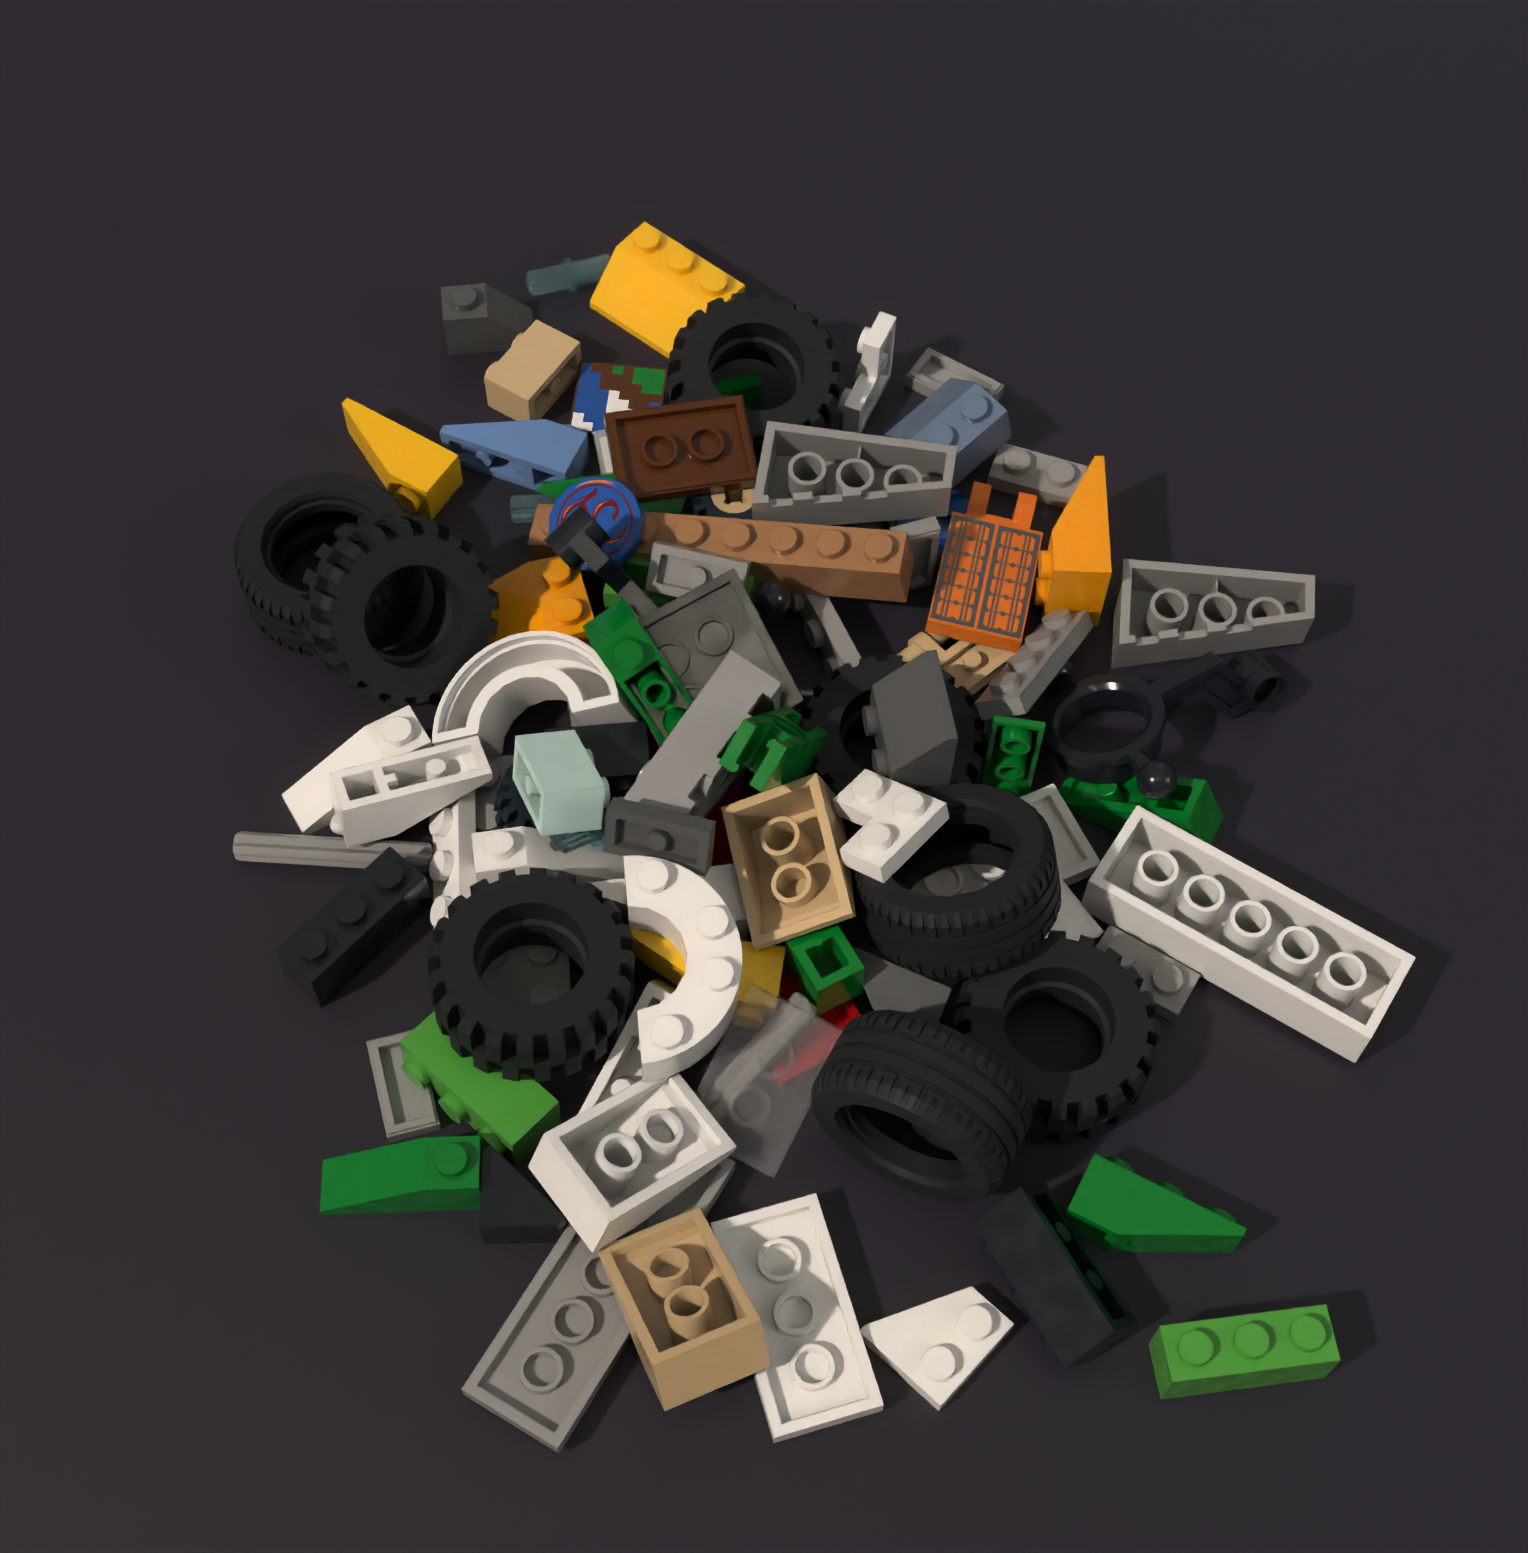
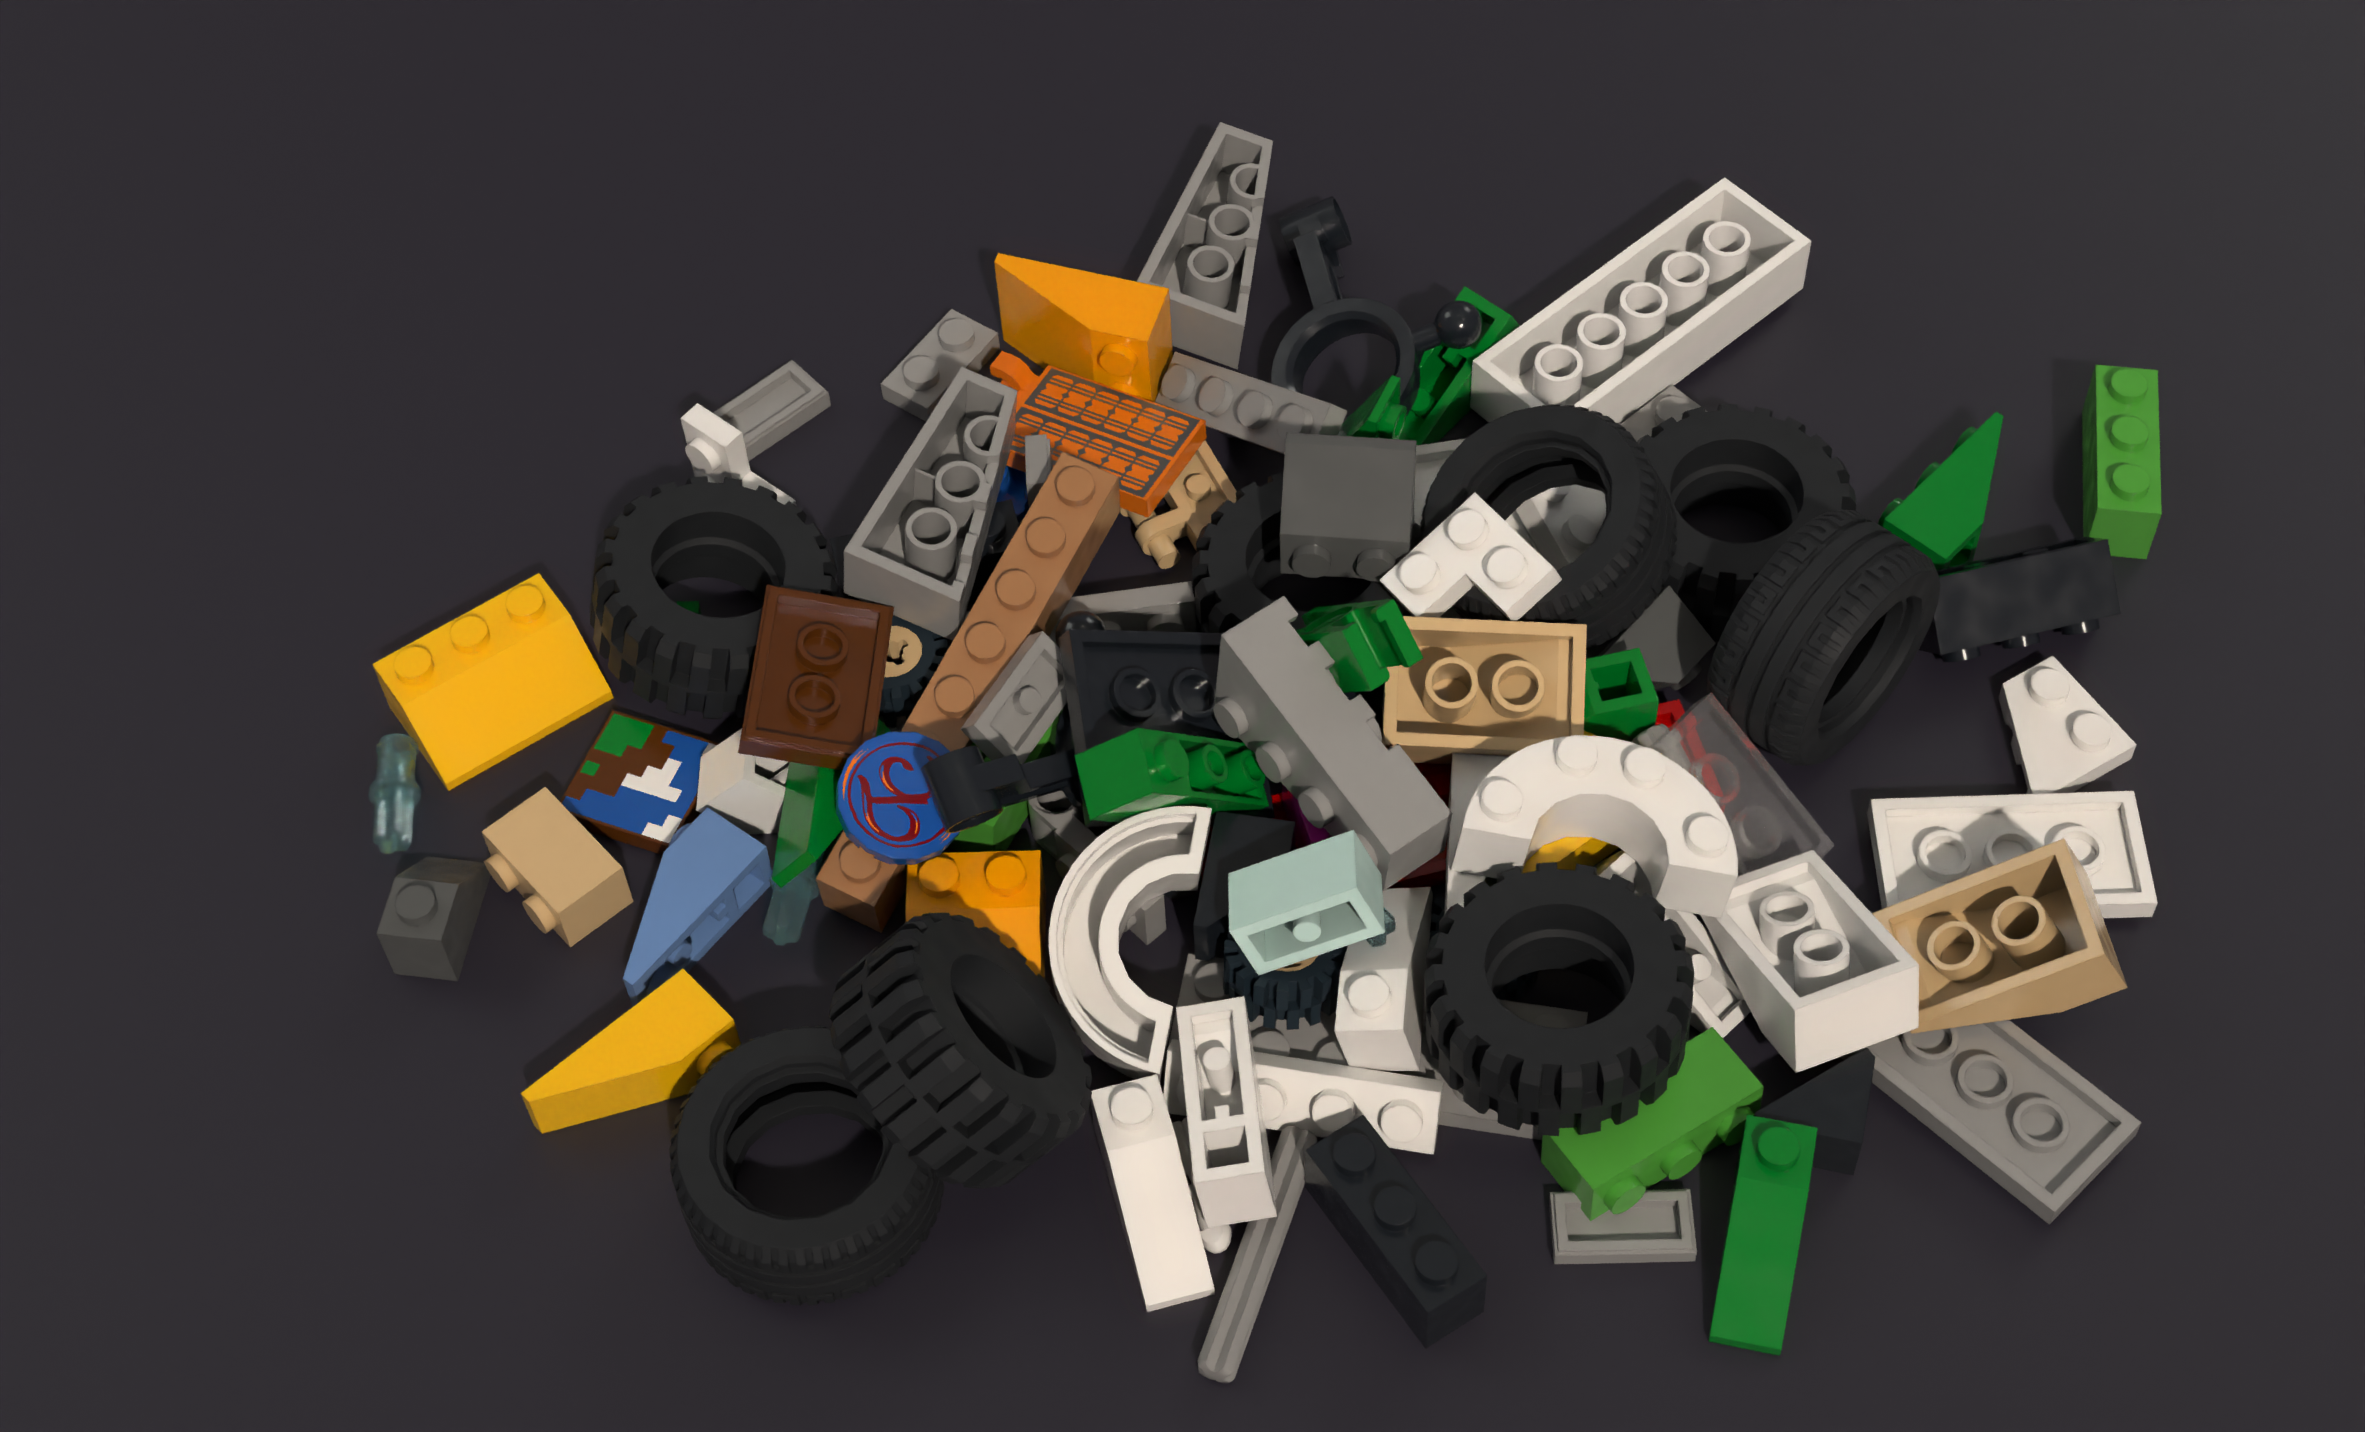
camera: 70 degrees left, 5 degrees down
(659, 833) = (1443, 785): dark grey plate -> none
(959, 416) = (847, 421): sand blue slope -> none

